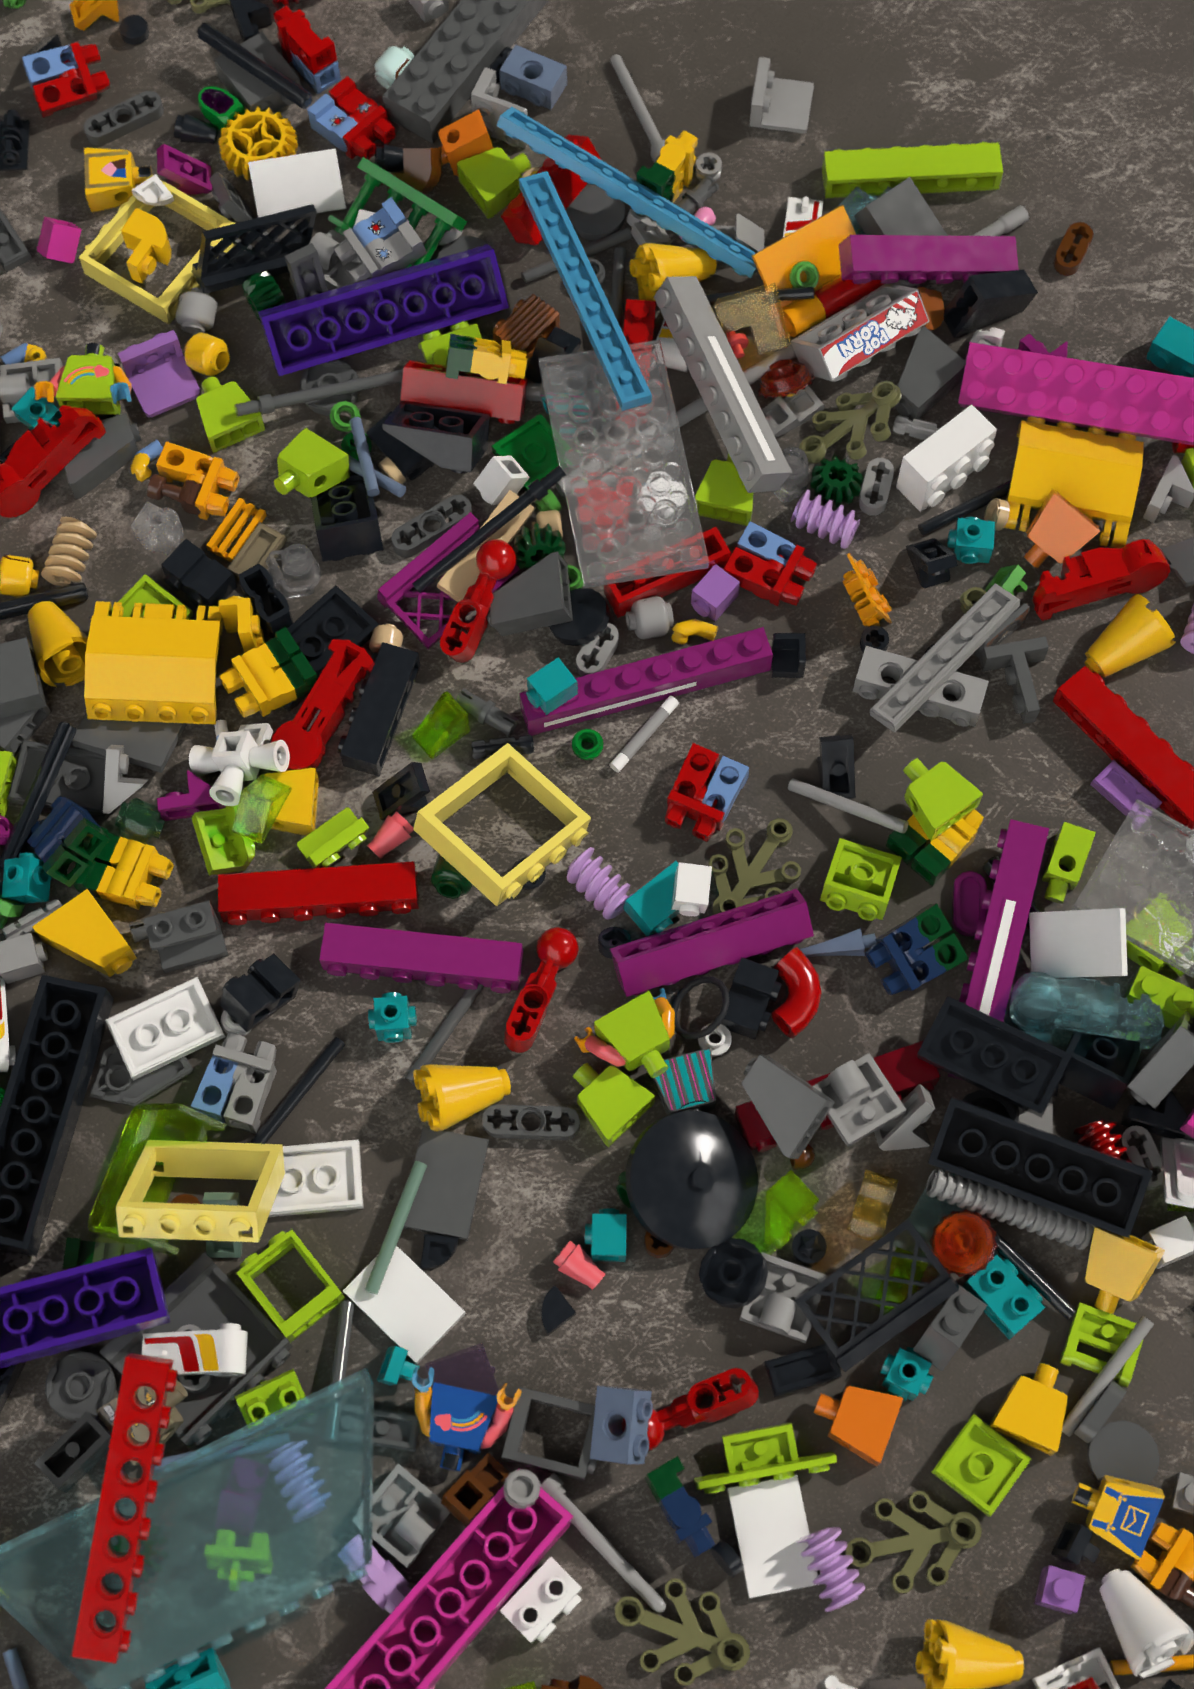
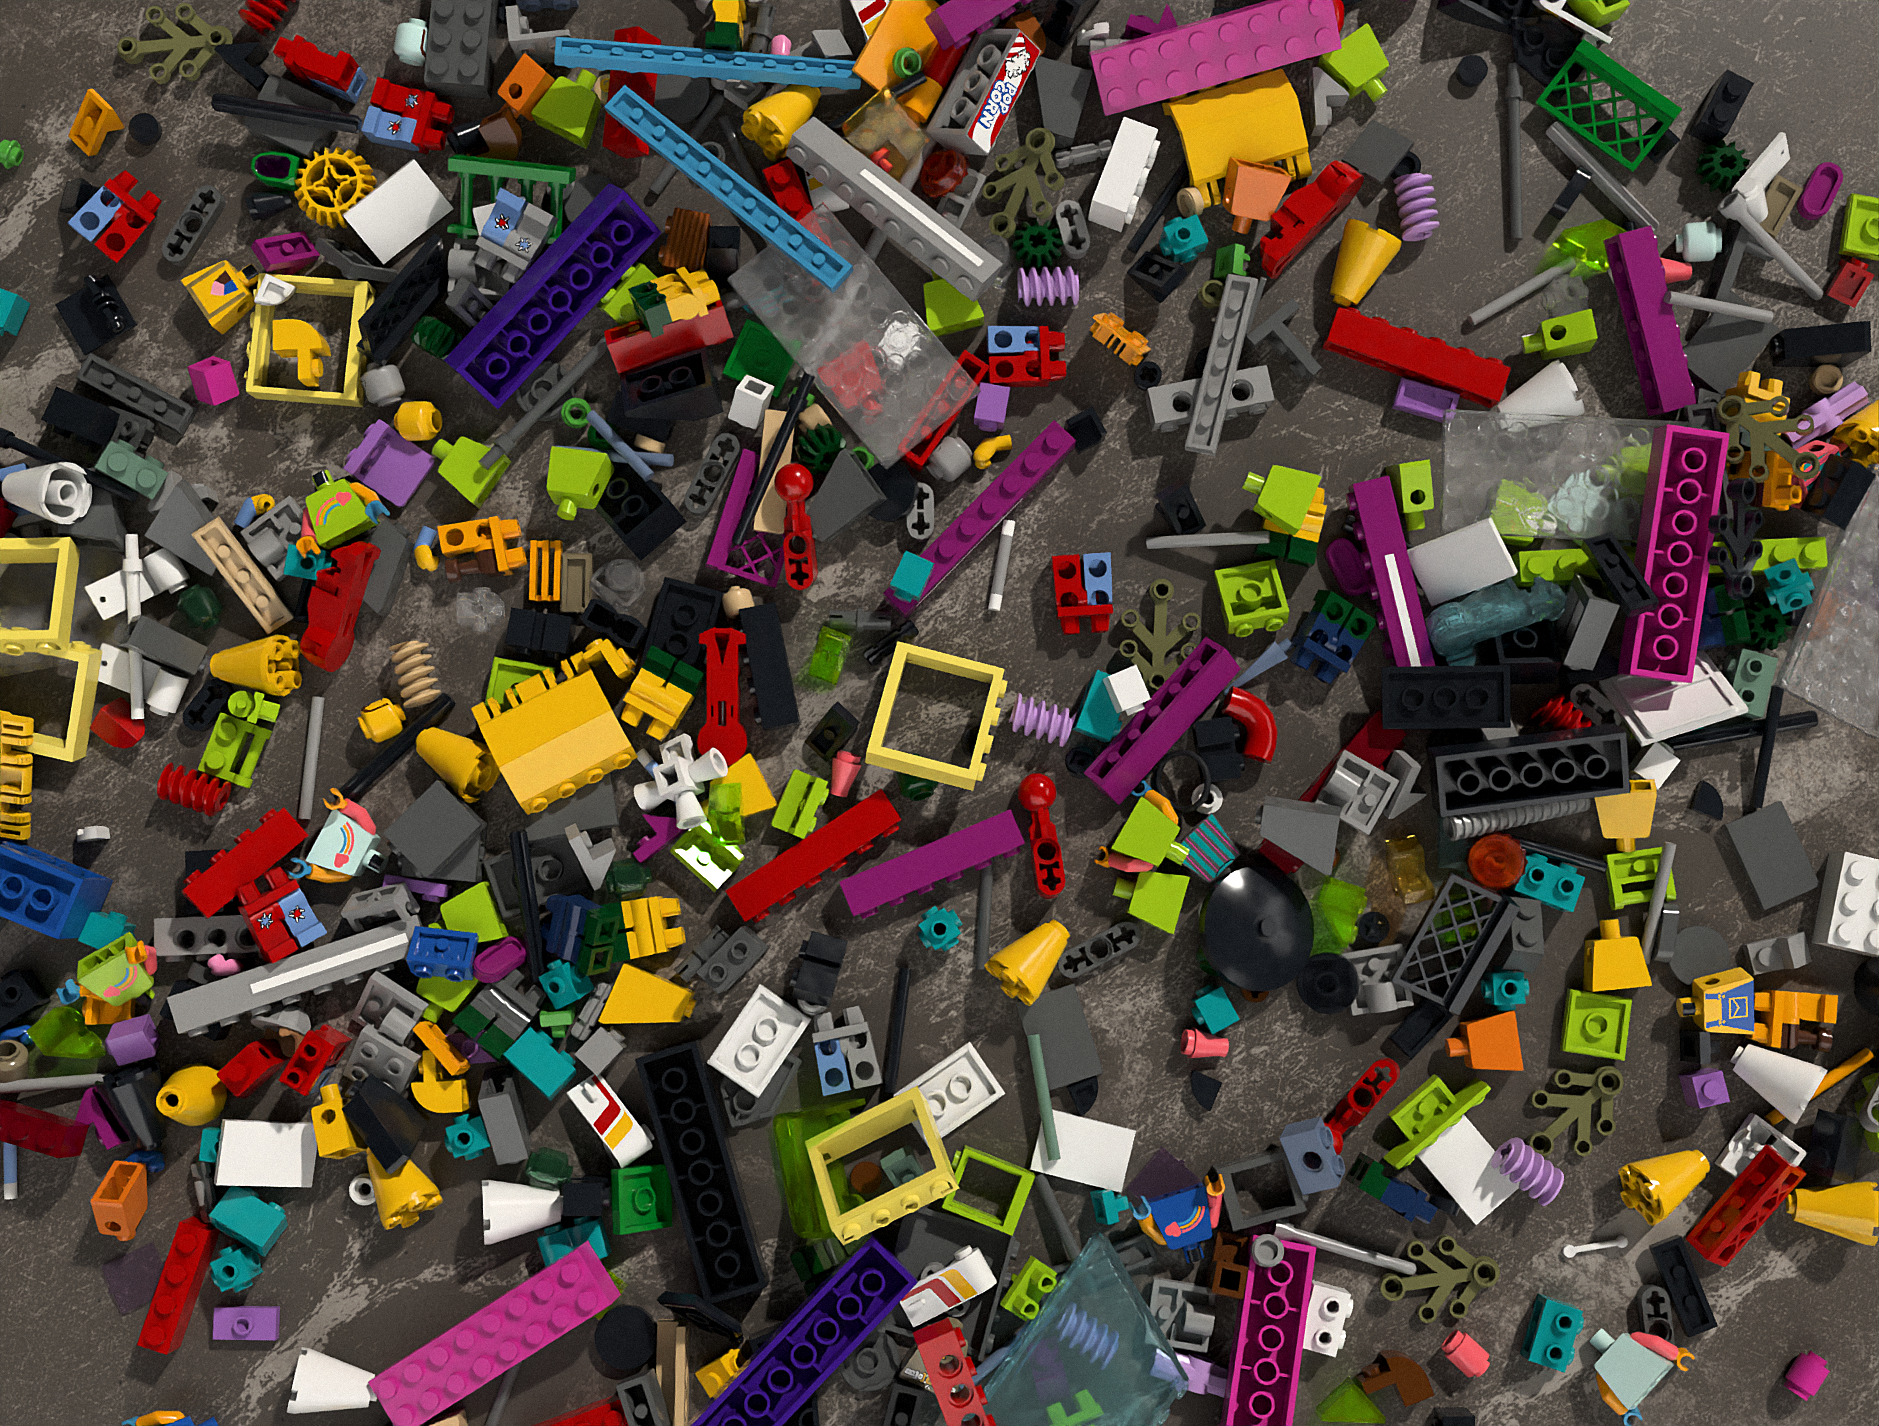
camera: 30 degrees left, 15 degrees up
(591, 736) = (960, 591): green plate -> none

